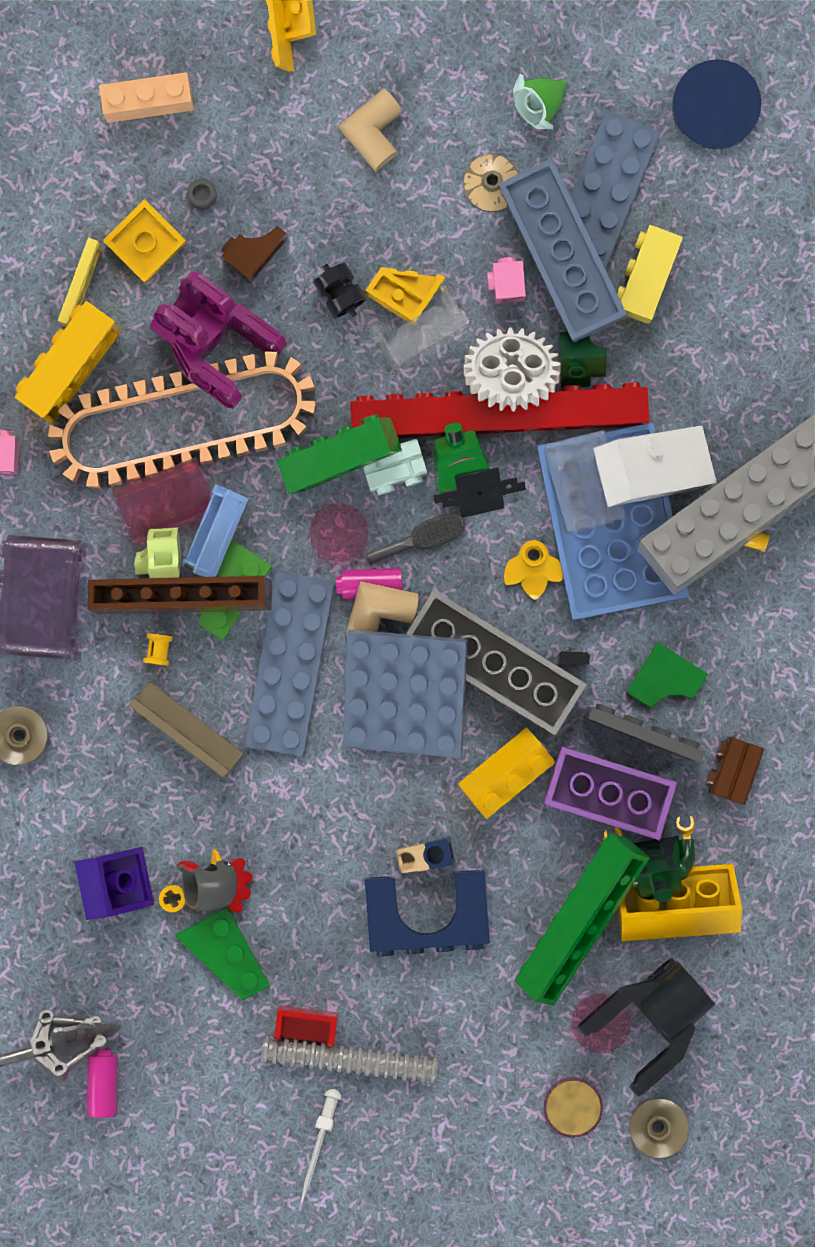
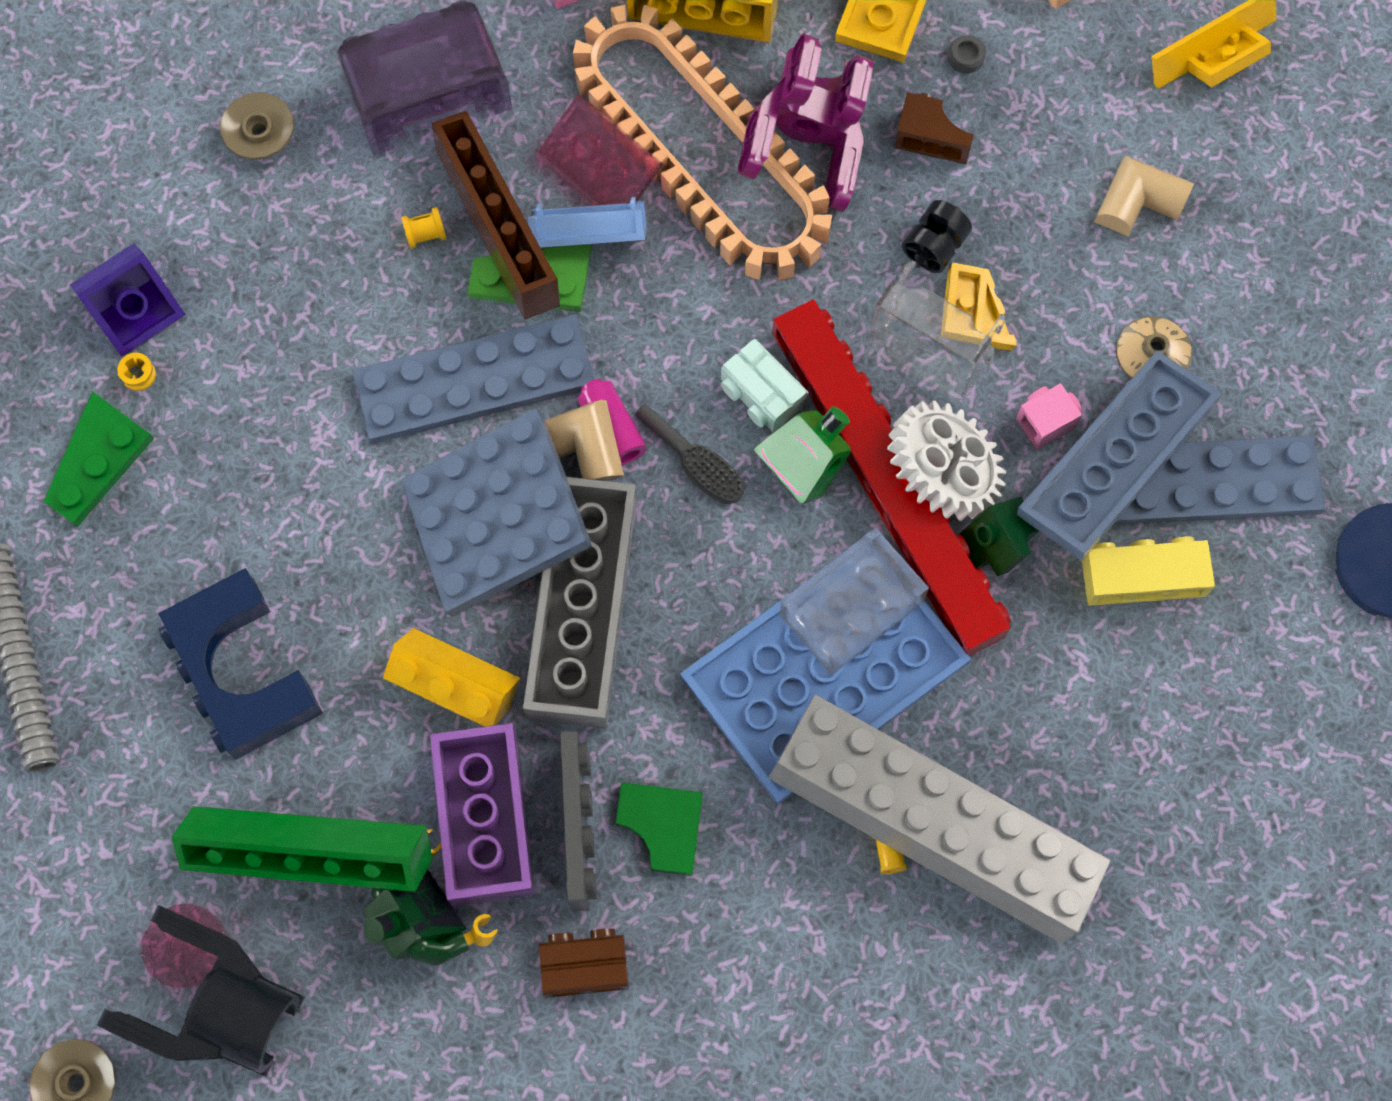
camera: 65 degrees right, 15 degrees down
(162, 555) = (535, 179): yellowish green brick -> none
(186, 729) = (341, 299): dark tan fence -> none
(216, 885) = (171, 410): dark grey piece -> none
(306, 1024) = (40, 583): red panel -> none
(340, 454) = (745, 311): green brick -> none
(343, 542) = (655, 376): clear pink tile -> none
(425, 856) = (310, 634): leg -> none
(486, 481) = (798, 494): black piece -> none
(533, 574) = (714, 604): yellow plate -> none
(544, 98) = (1290, 354): hat -> none
(573, 1107) = (60, 960): pearl gold tile -> none
(577, 658) = (633, 696): black tile -> none
(654, 465) = (917, 671): white brick -> none
(703, 906) = (388, 1000): yellow slope -> none

